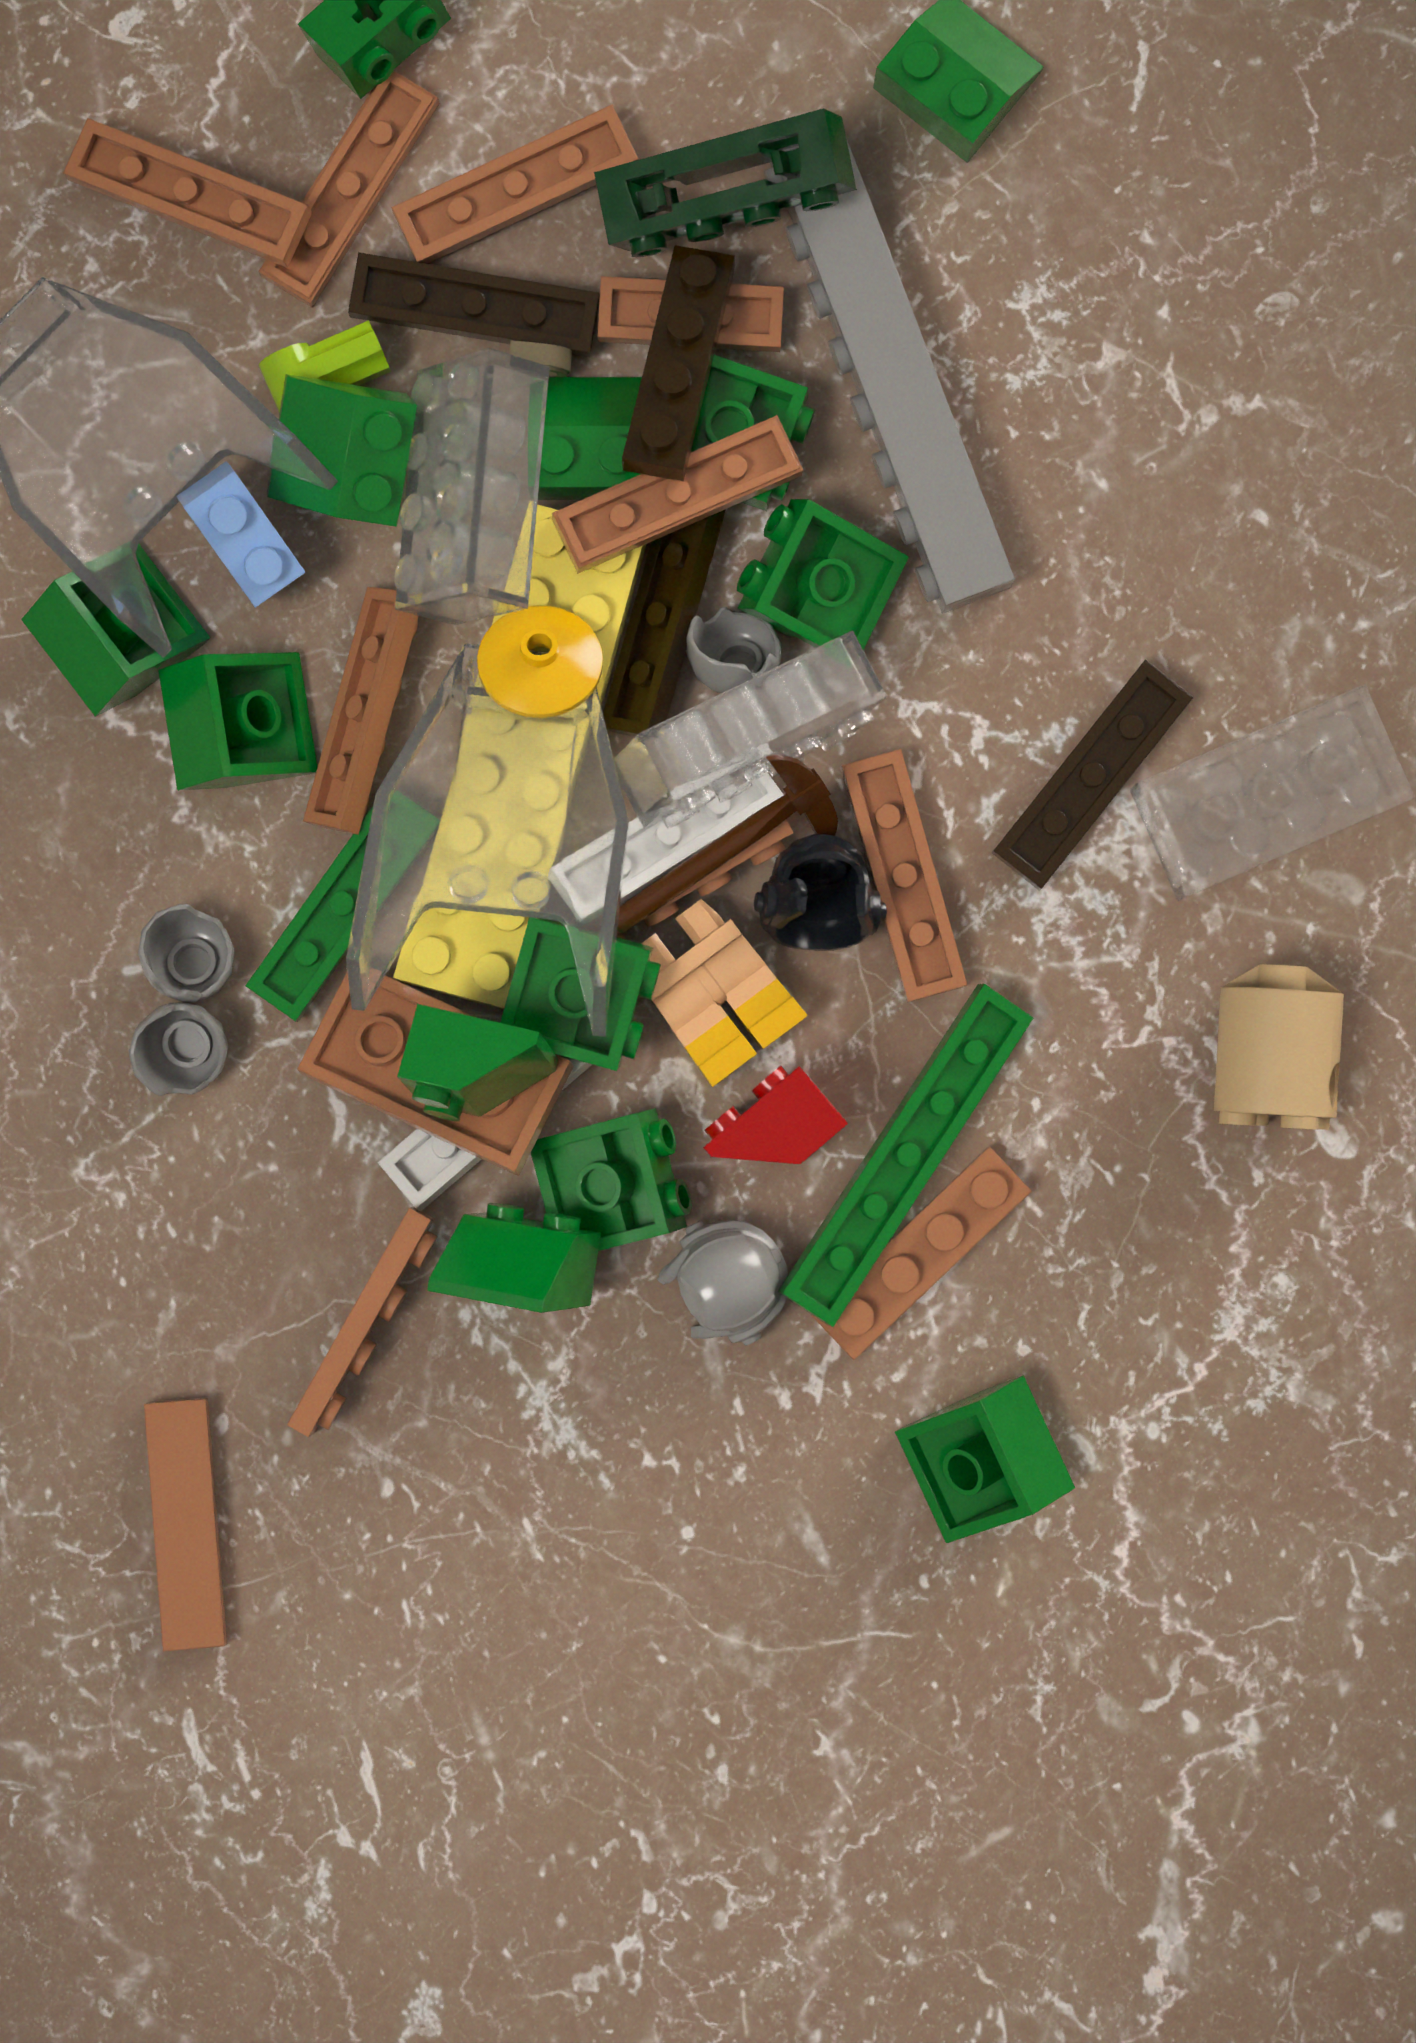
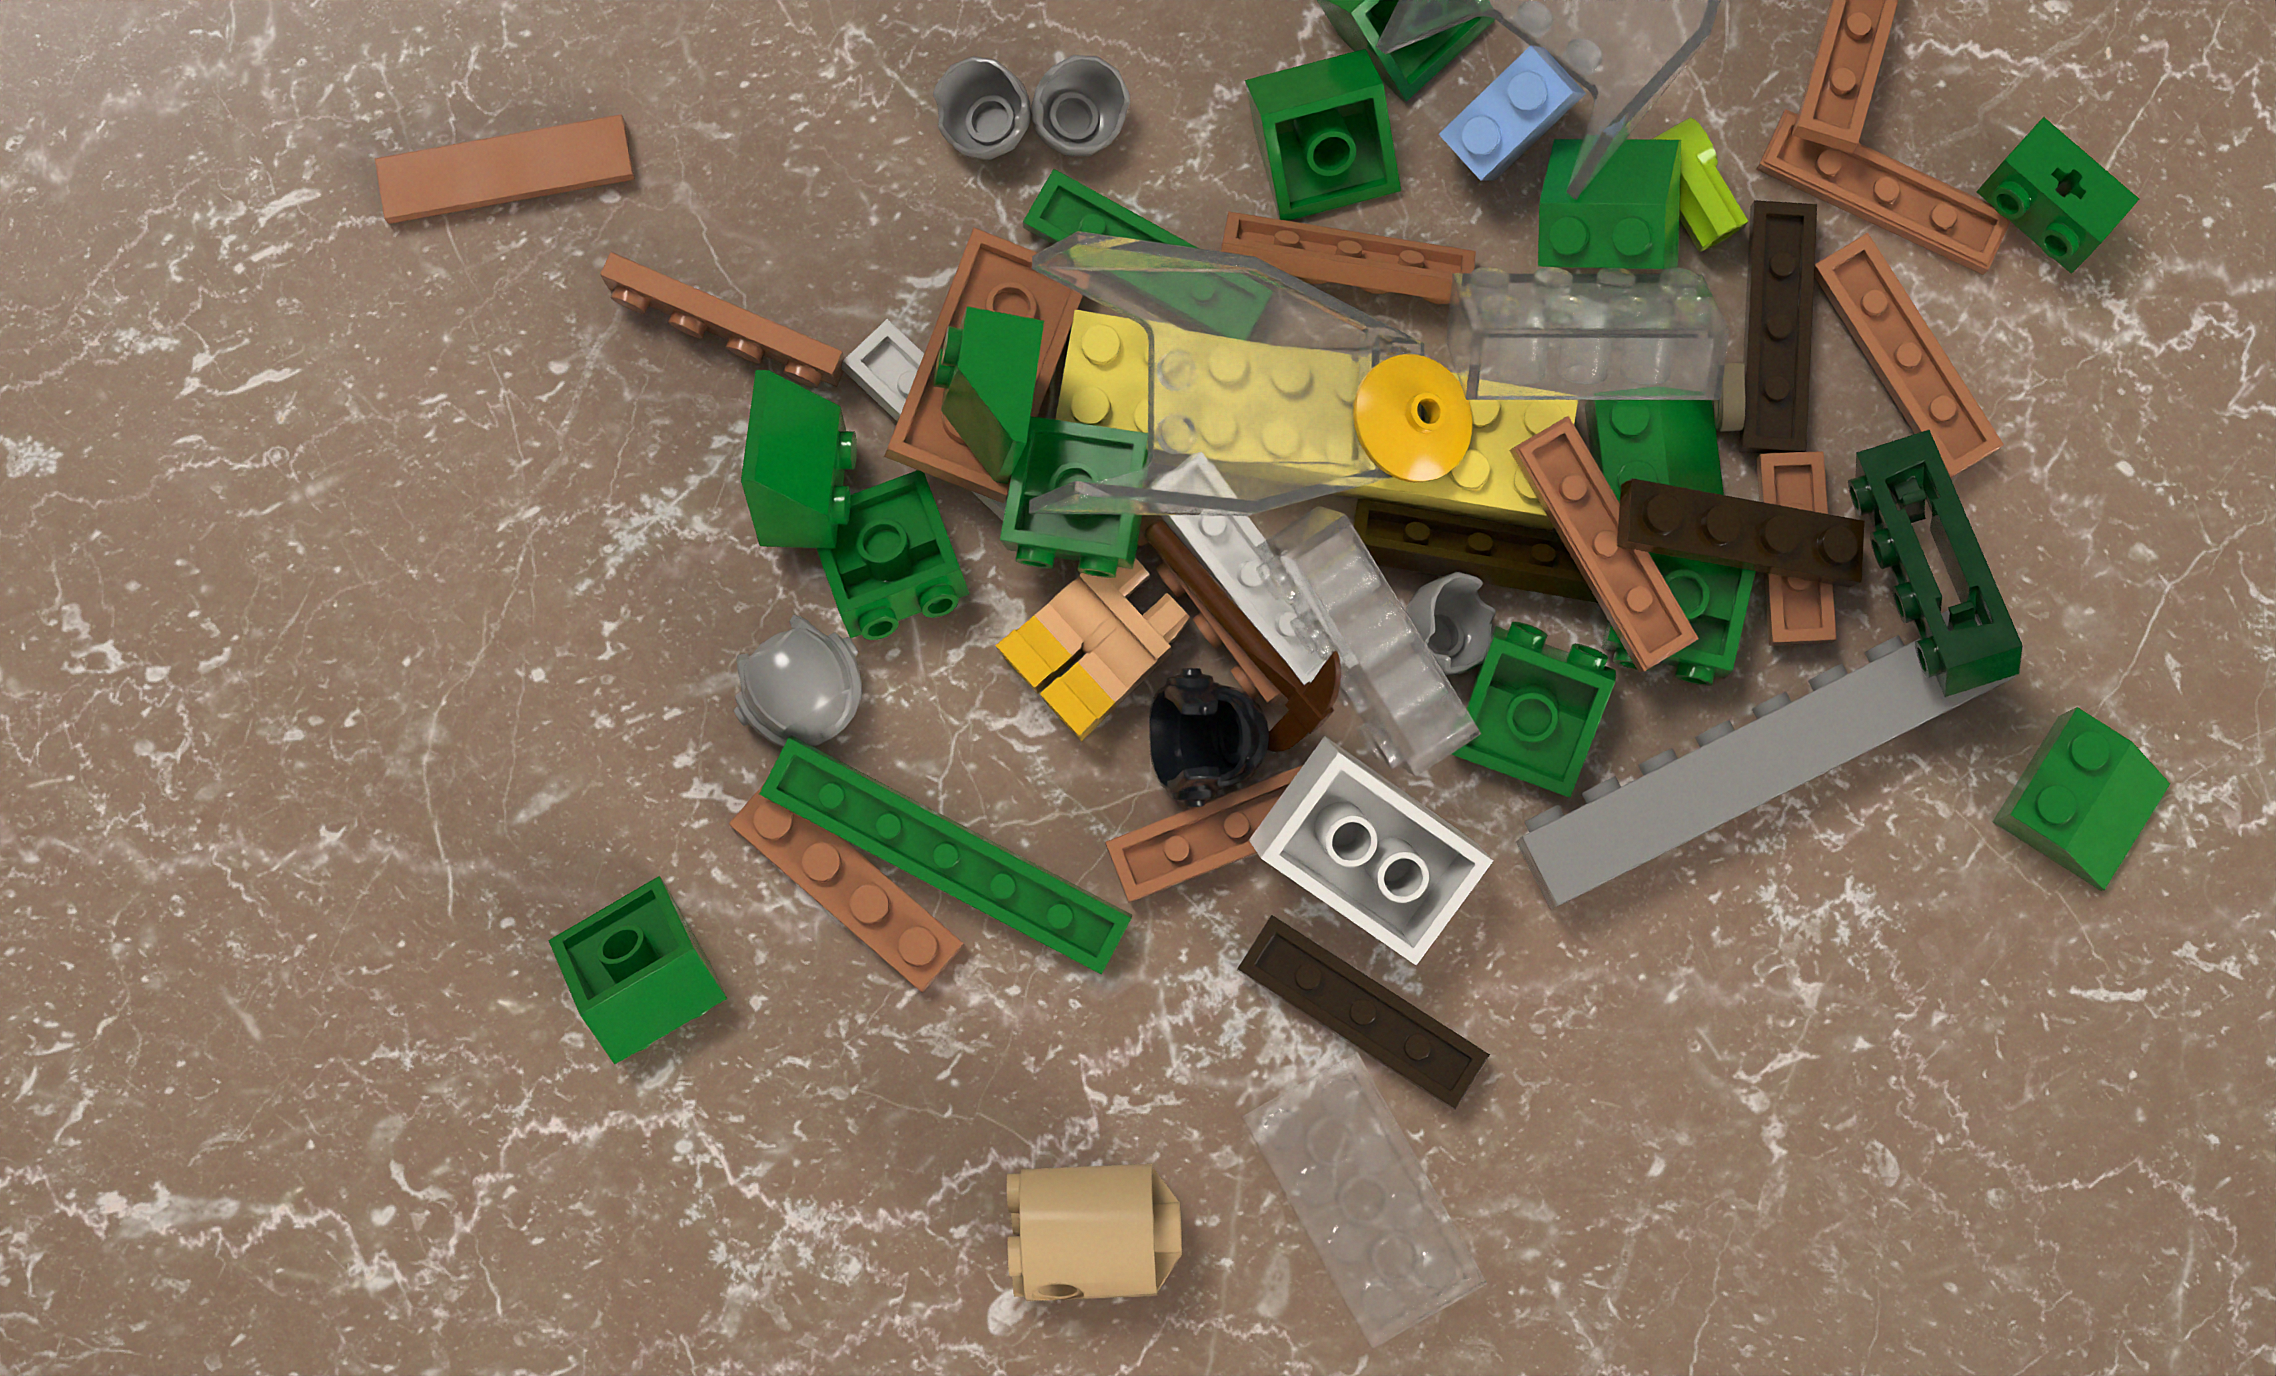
camera: 90 degrees right, 5 degrees down
(781, 1127) = (960, 718): red slope -> none
(947, 749) = (1370, 850): none -> white brick

